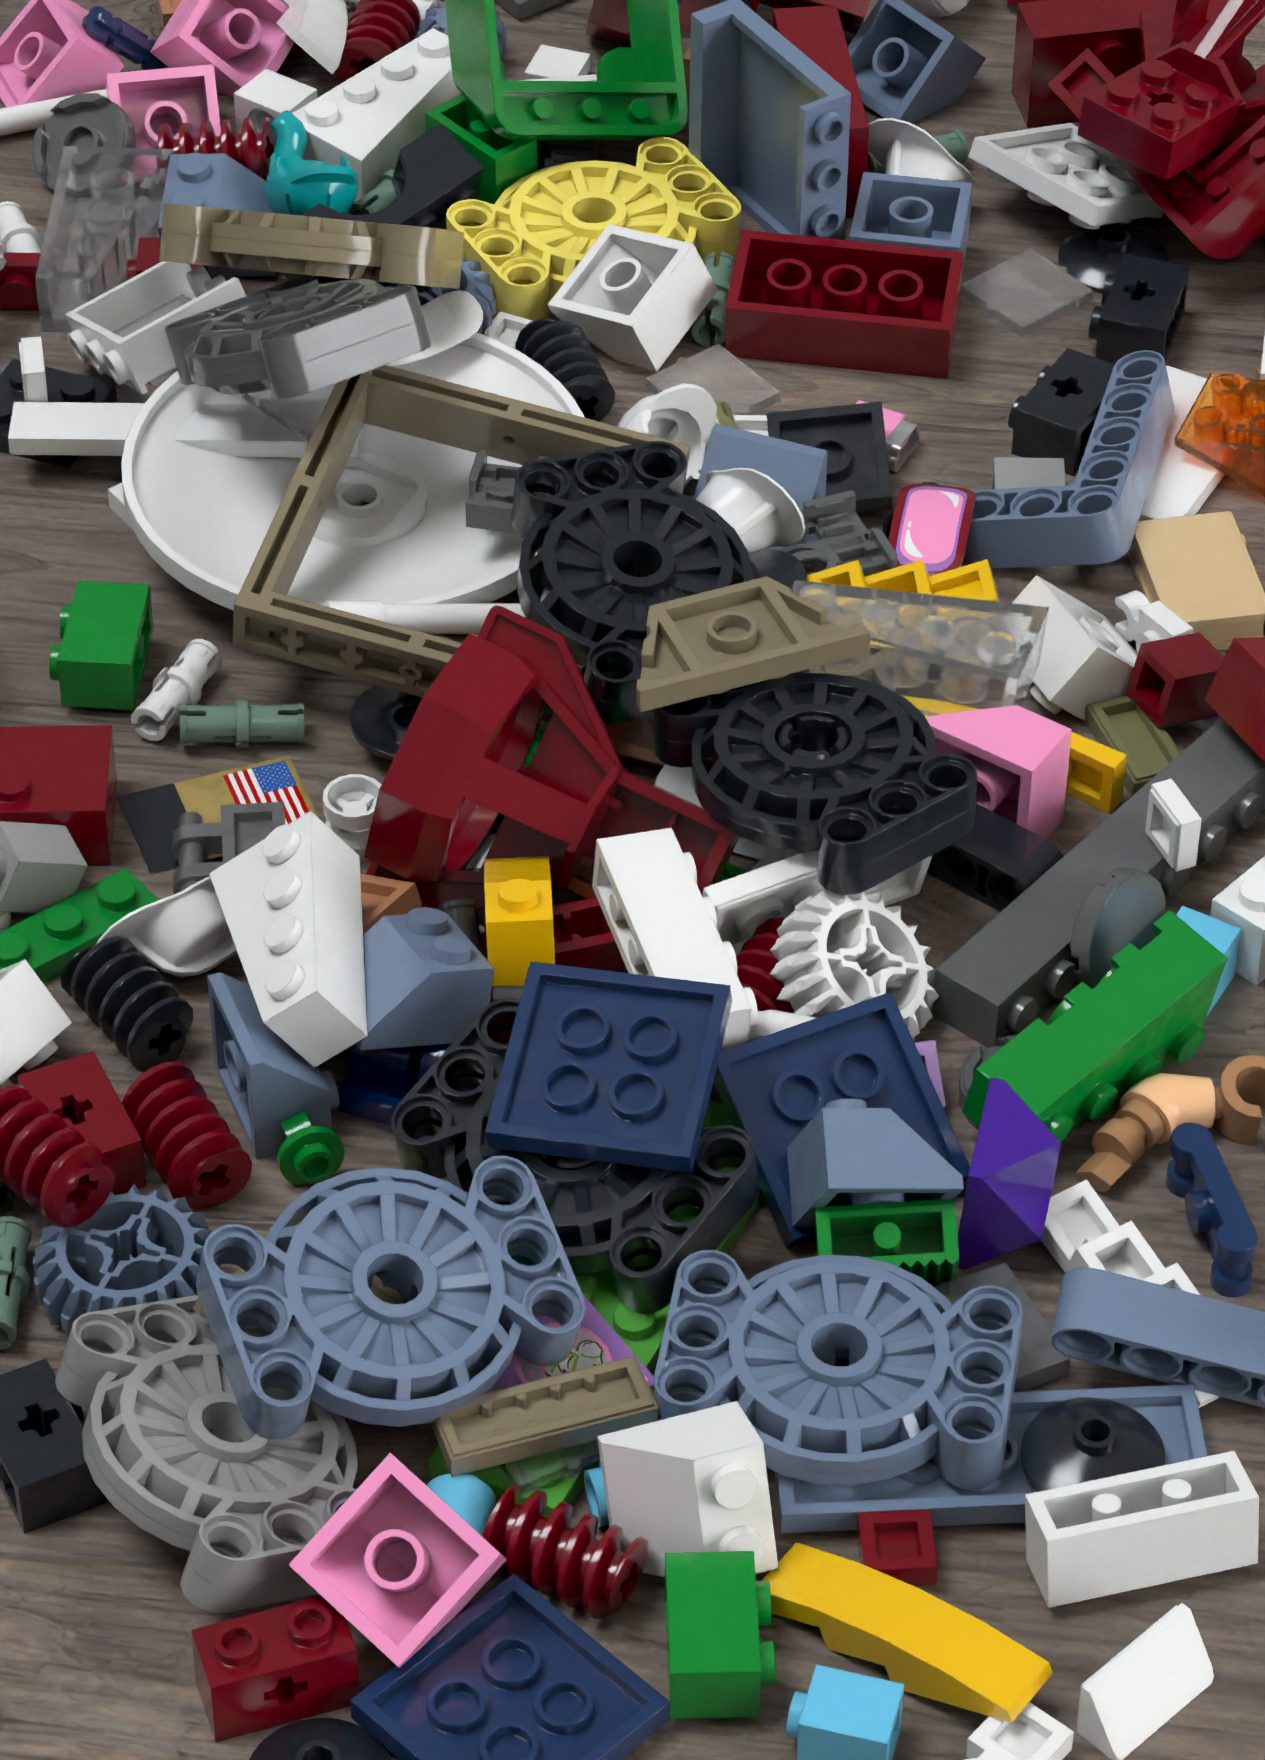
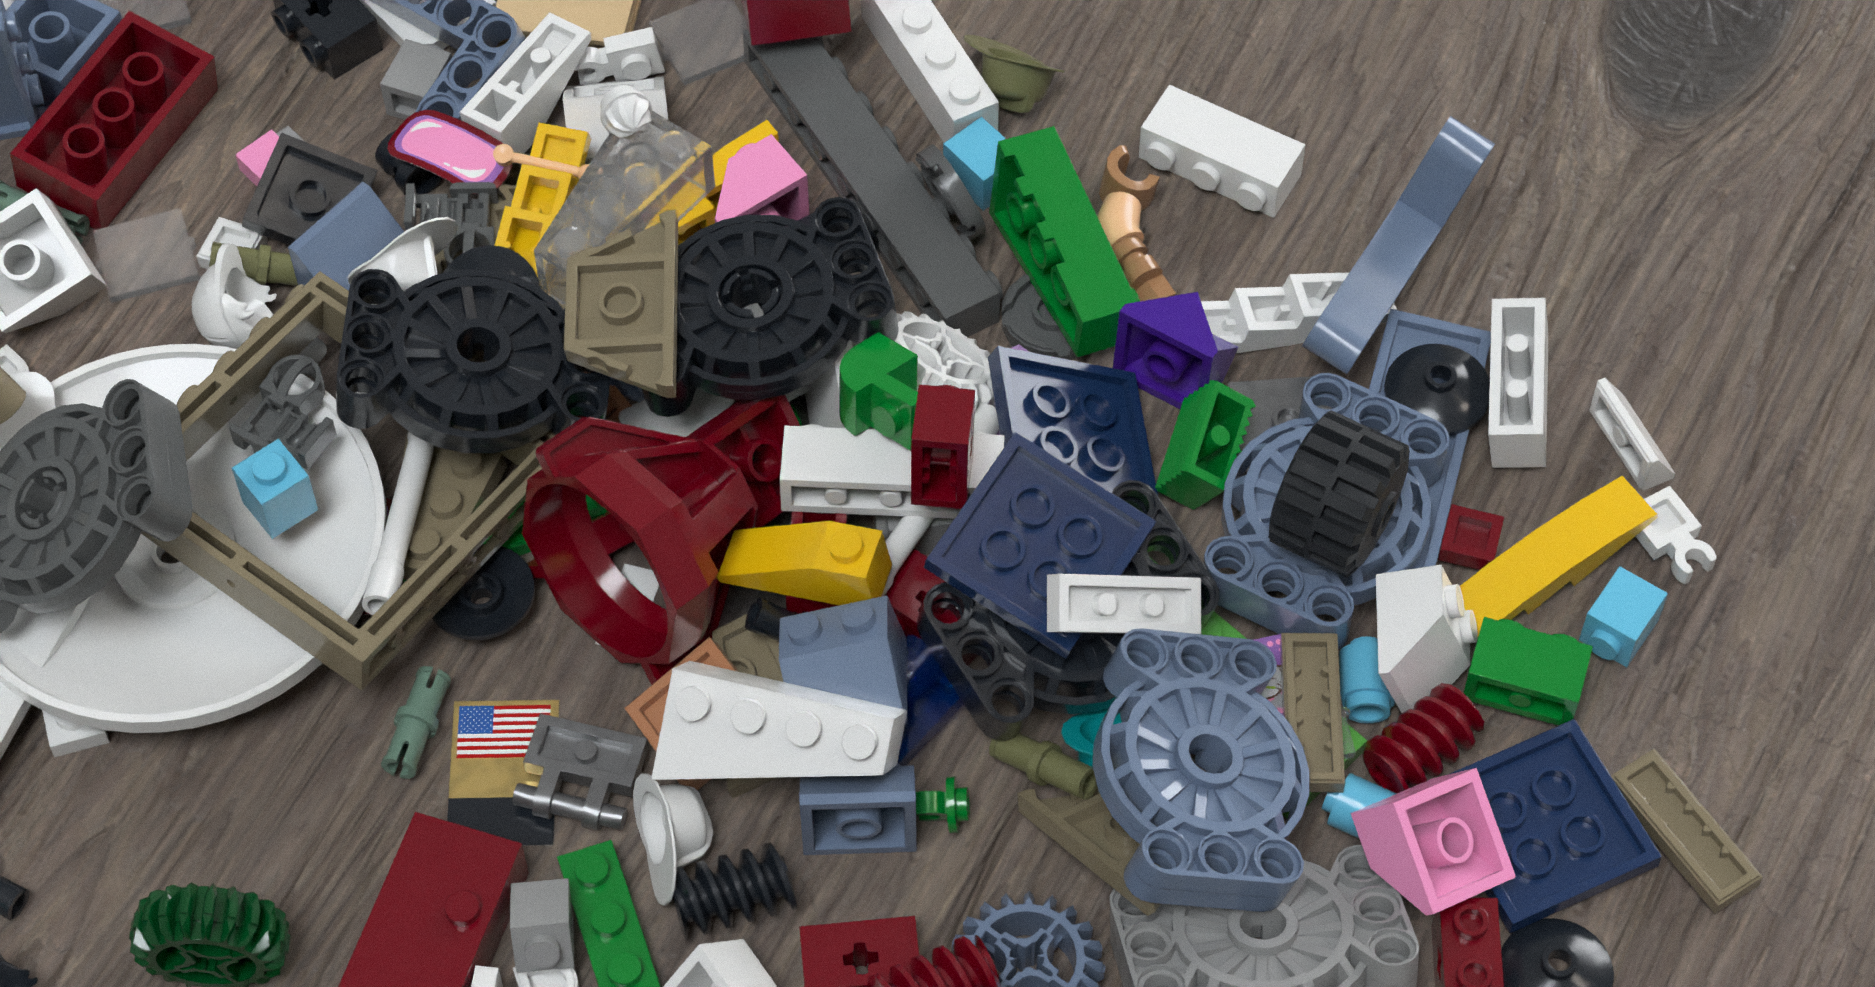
camera: 70 degrees left, 15 degrees up
(103, 645) = (279, 798): green brick -> none
(174, 687) = (347, 761): white pin -> none
(186, 1136) = (904, 887): dark red piece -> none
(350, 809) = (579, 654): white wheel -> none
(419, 498) = (275, 488): none -> medium azure brick
(559, 1153) = (1122, 603): none -> white plate
(569, 357) = (65, 350): black piece -> none
(670, 913) = (942, 446): none -> dark red brick
(748, 873) = (879, 389): none -> green brick
(797, 1300) = (1338, 493): none -> black wheel
(861, 1159) = (1160, 429): sand blue slope -> none
(933, 553) = (506, 156): none -> light nougat hinge
(1008, 589) = (625, 111): none -> white plate
(1068, 557) = (528, 83): none -> white slope
(1126, 728) = (720, 115): olive tile -> none
(1173, 825) = (880, 113): white tile -> none
(1174, 679) = (692, 59): dark red brick -> none
(1213, 1207) = (1228, 238): dark blue plate -> none

